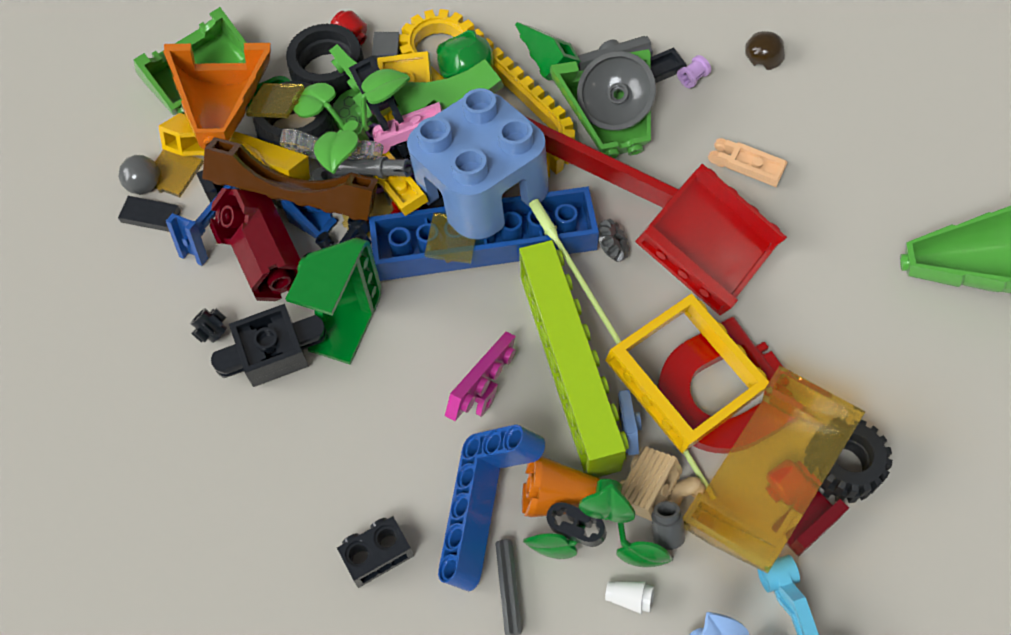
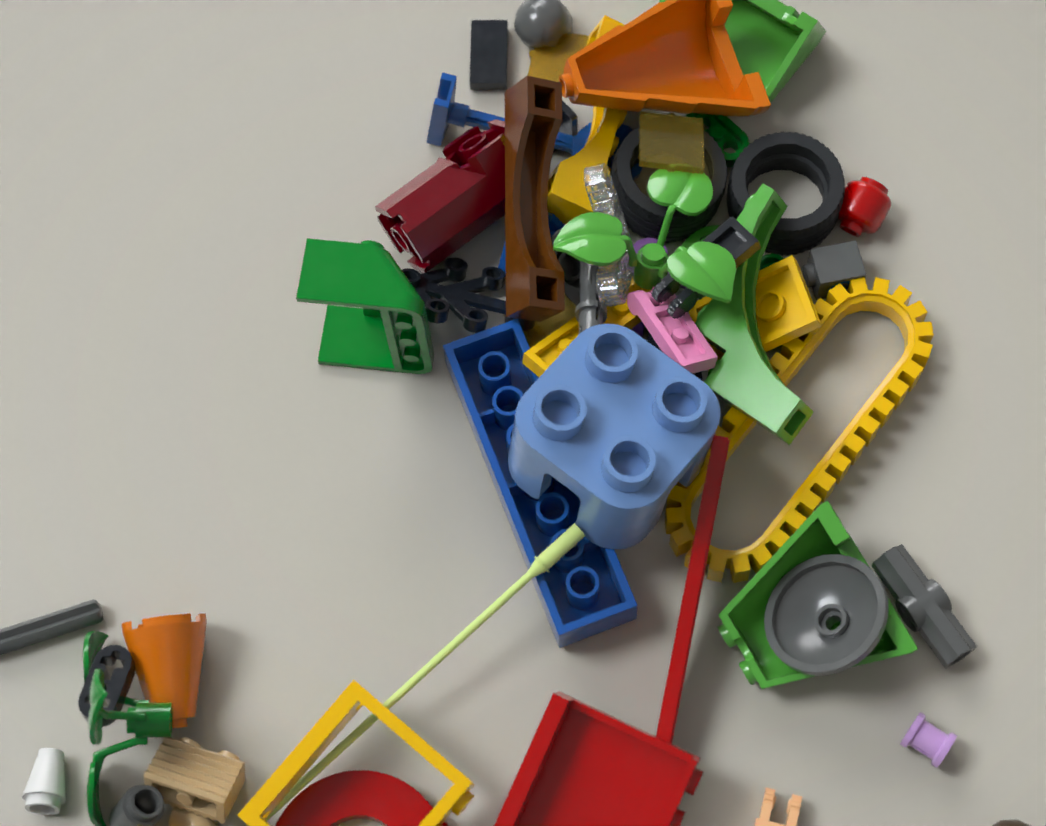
camera: 80 degrees right, 5 degrees up
(208, 325) = (331, 176): black gear -> none
(264, 334) = (286, 238): black brick -> none
(379, 558) = (59, 460): black brick -> none
(447, 243) = (491, 434): clear yellow piece -> none
(463, 53) = (834, 380): green helmet -> none
(475, 496) = (184, 556): blue beam -> none
(477, 384) = (296, 527): dark pink plate -> none
(546, 49) = (902, 500): green slope -> none
(572, 361) = (354, 637): lime brick -> none
(613, 240) = (575, 648): dark grey gear -> none
(630, 421) = (273, 735): medium blue plate -> none
(666, 64) = (929, 684): black tile -> none

